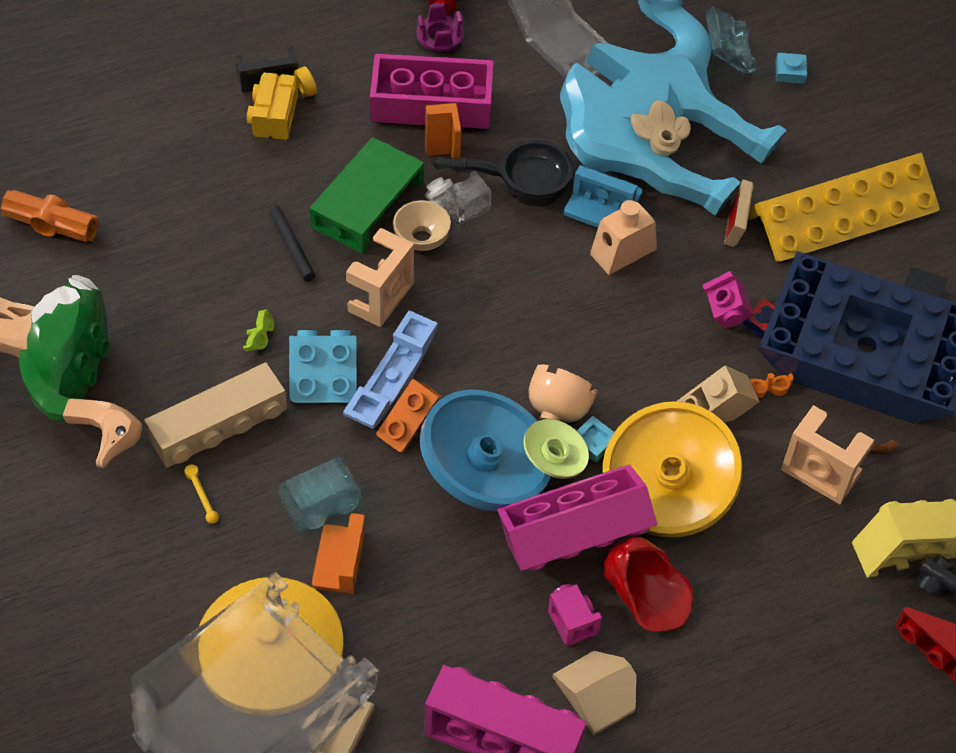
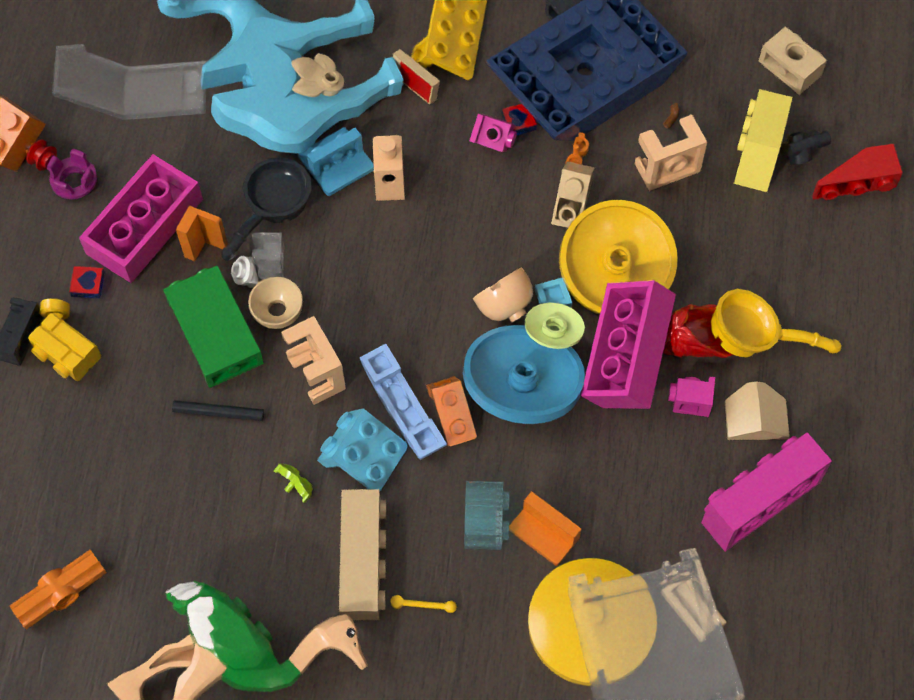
camera: 55 degrees left, 10 degrees up
(349, 92) = (87, 282): none -> tile
(691, 624) = (751, 326): none -> yellow piece

